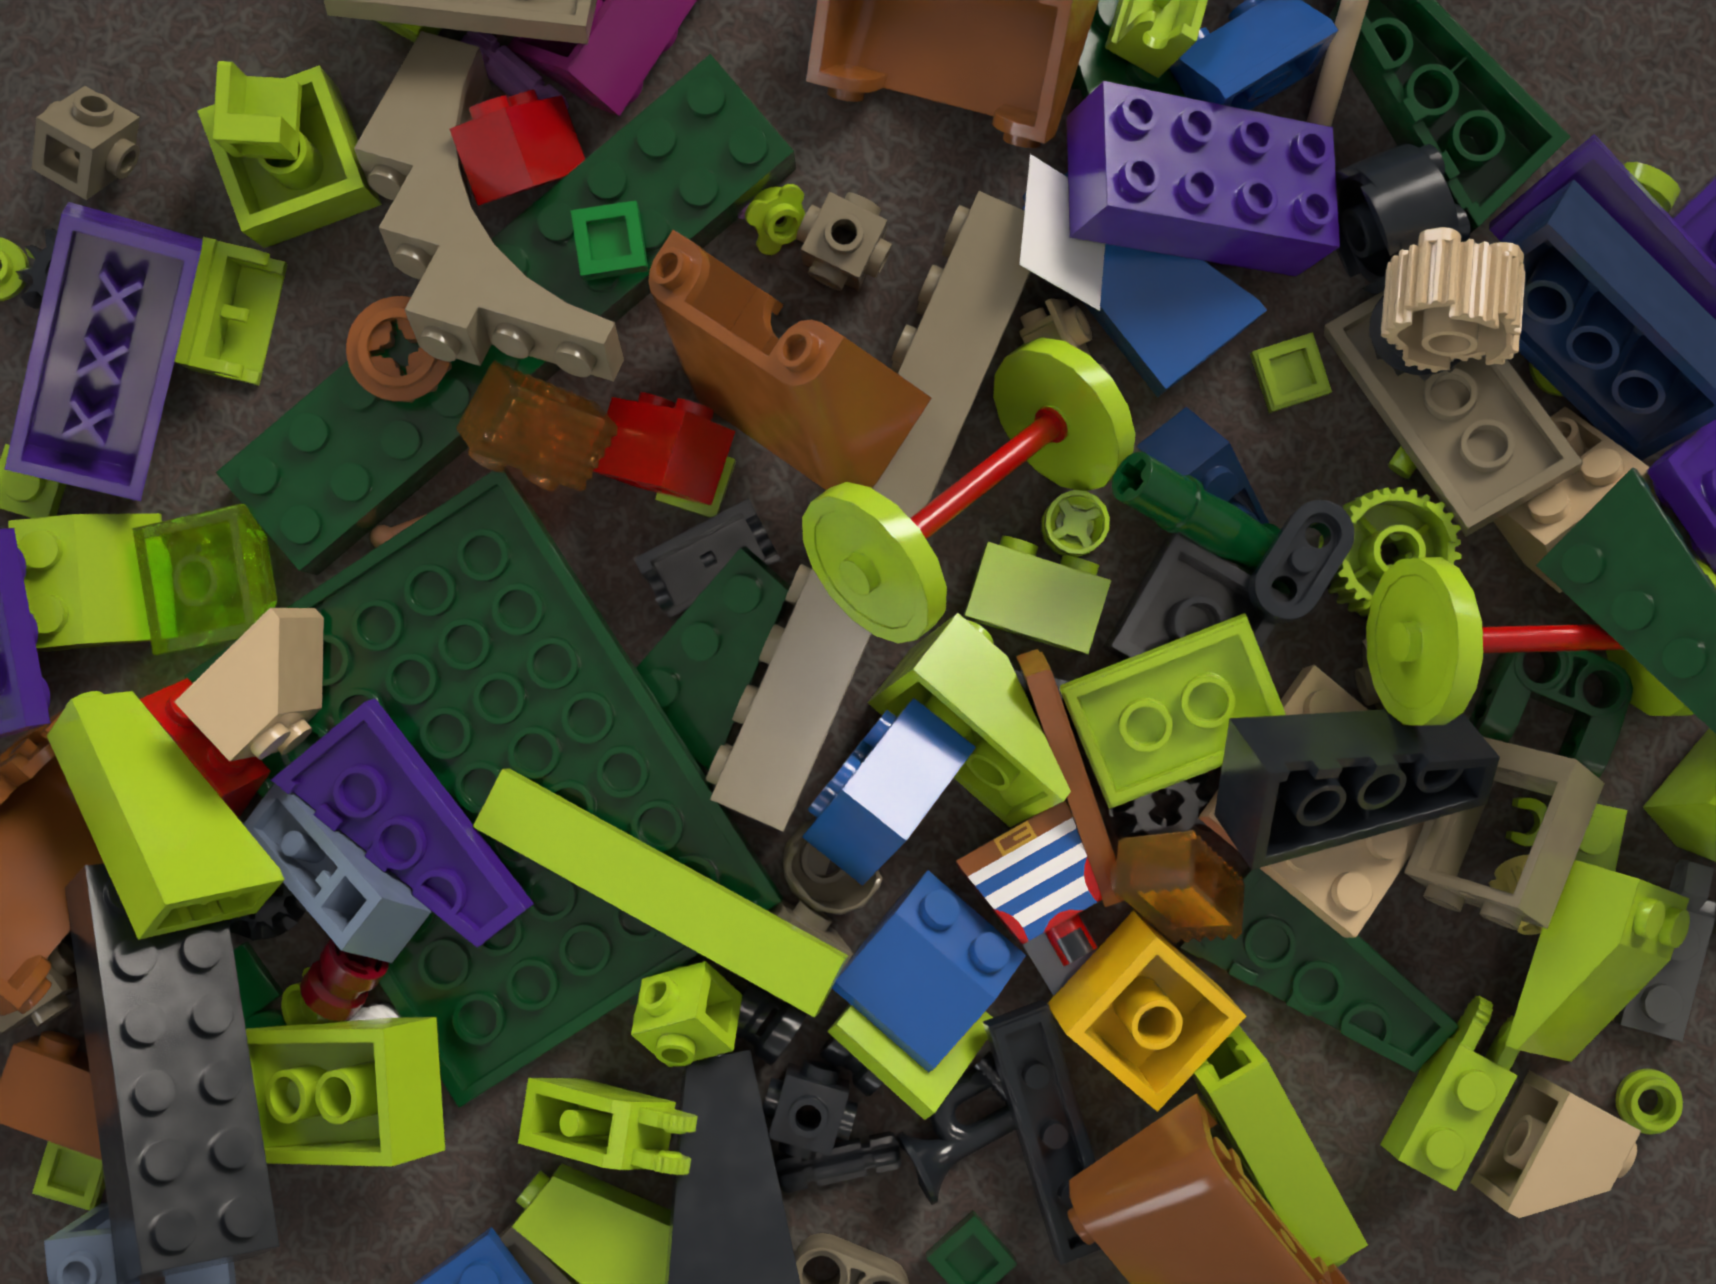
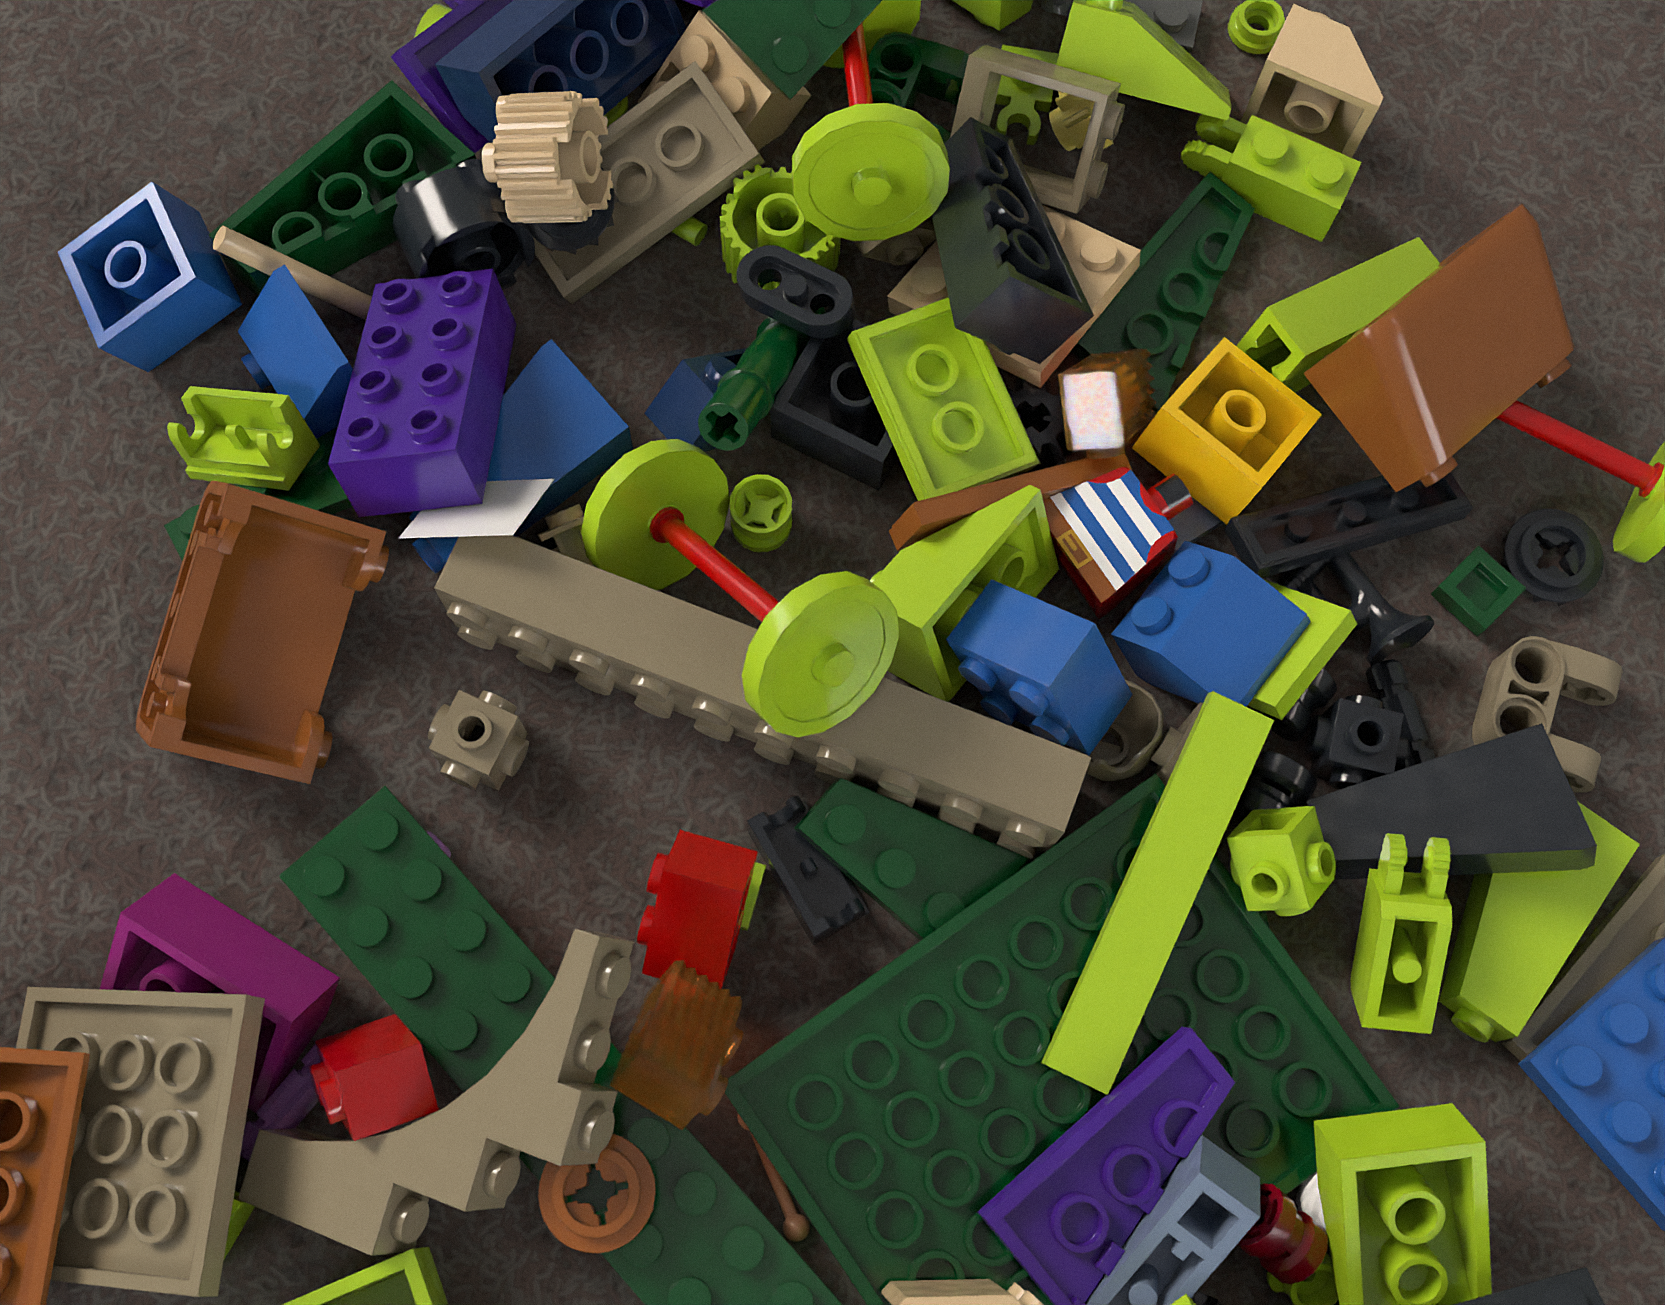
camera: 100 degrees left, 15 degrees down
(609, 240) = (479, 963): green plate -> none
(768, 208) = (451, 811): lime plate -> none
(800, 395) = (667, 724): dark orange windscreen -> none
(1037, 596) = (836, 532): lime brick -> none
(1290, 372) = (608, 329): lime tile -> none

